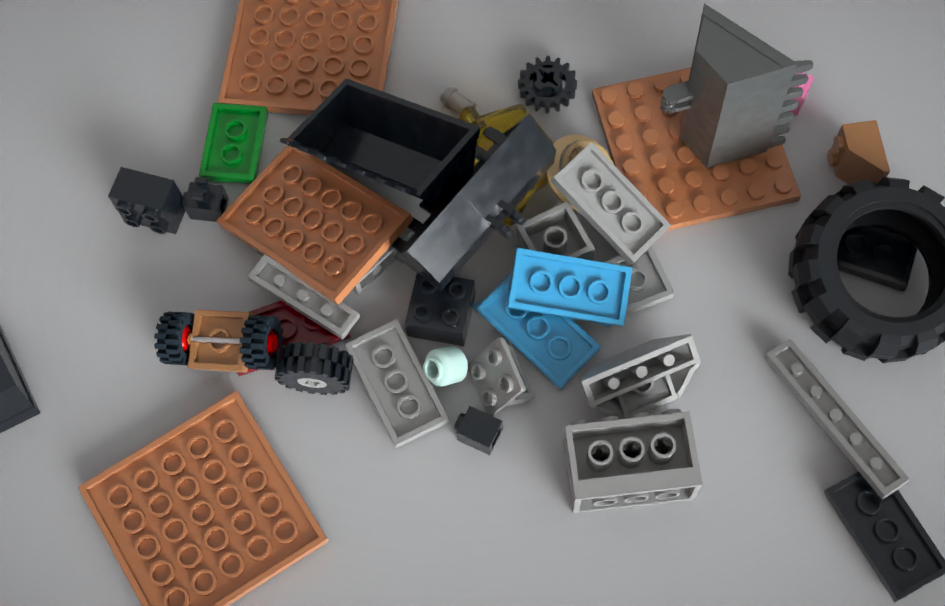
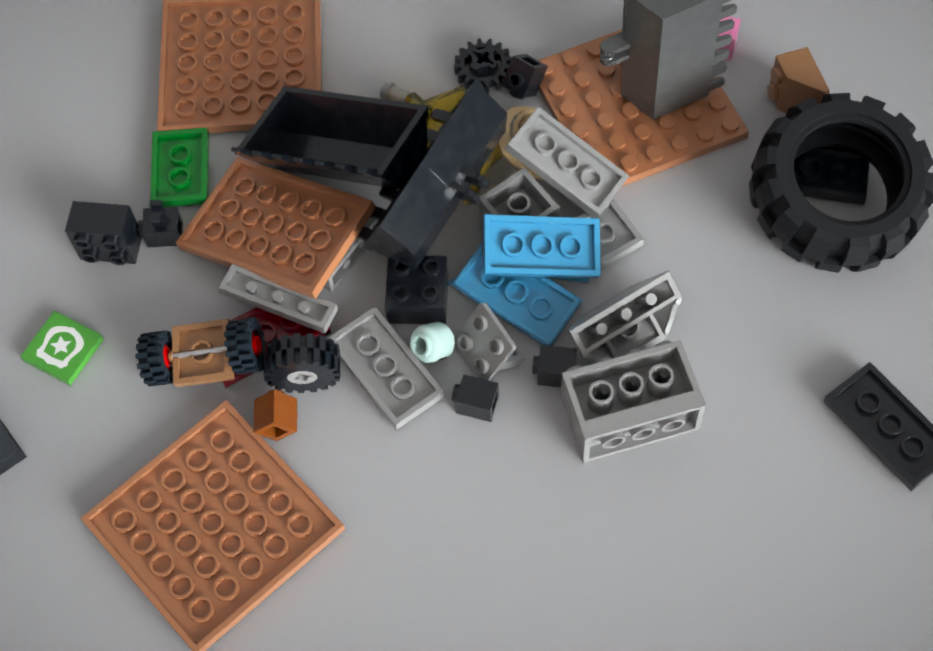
camera: 10 degrees left, 5 degrees down
(91, 309) = (62, 348): none -> bright green tile
(280, 414) = (275, 415): none -> dark orange brick
(561, 409) = (552, 364): none -> black brick
(585, 102) = (524, 76): none -> black brick
(837, 419) = (823, 329): light grey plate -> none

